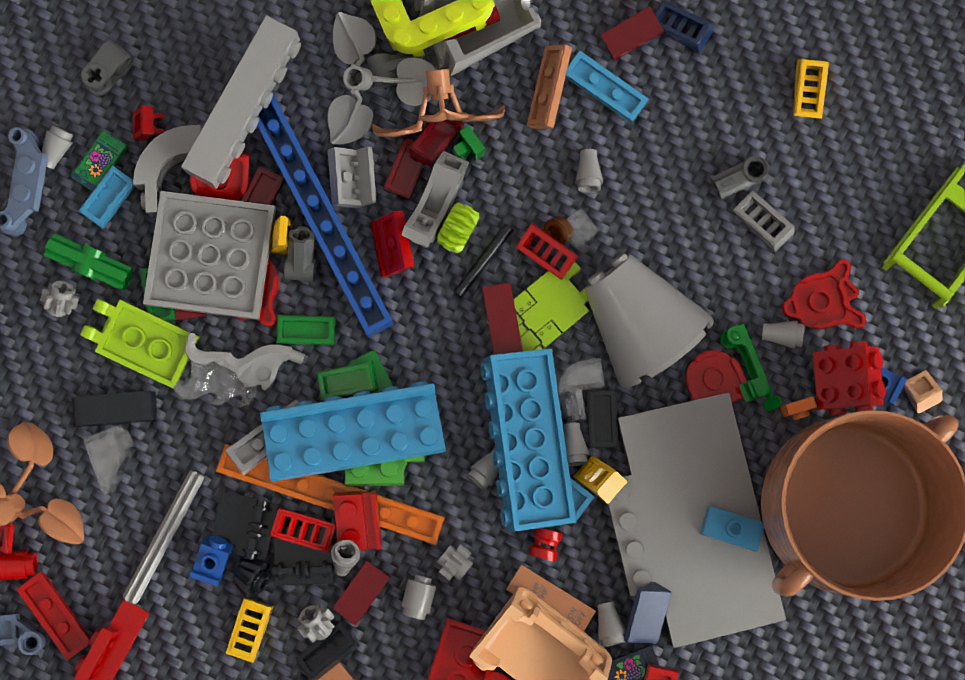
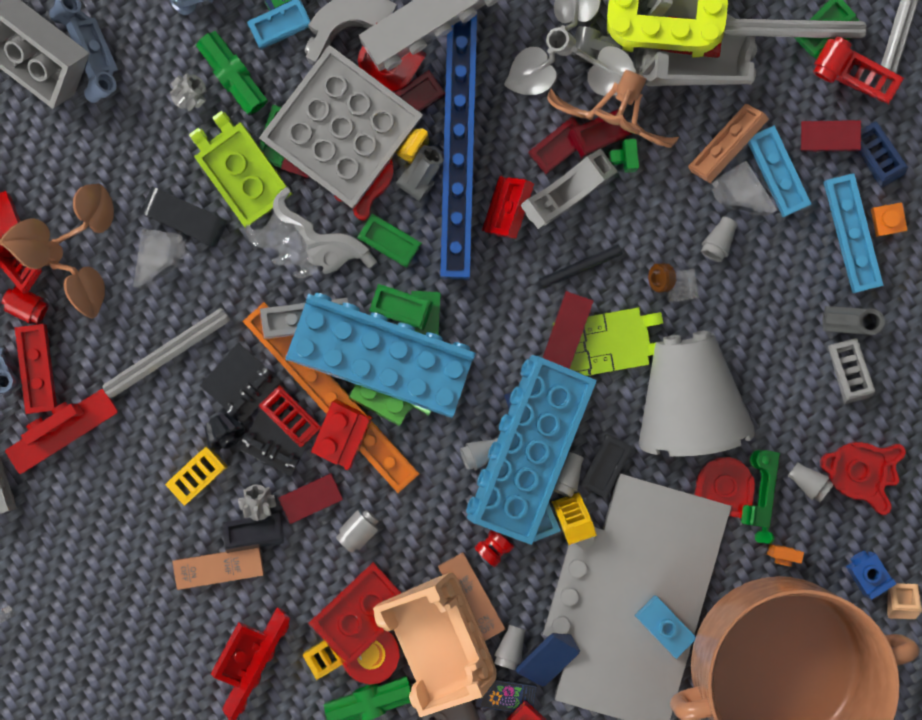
camera: 30 degrees right, 5 degrees up
(212, 570) = (196, 397): blue brick -> none
(344, 556) = (313, 460): light grey cone -> none
(352, 177) = (505, 126): light grey bracket -> none
(455, 562) = (406, 518): light grey gear -> none
(458, 227) = (574, 225): lime gear -> none
(528, 237) = (635, 267): red slope -> none
(579, 378) = (606, 419): clear brick -> none
(585, 120) = (743, 191): none -> clear slope
(698, 103) = (853, 233): none -> dark azure plate
(721, 76) = (889, 219): none -> orange plate
(848, 378) = (845, 554): red brick -> none

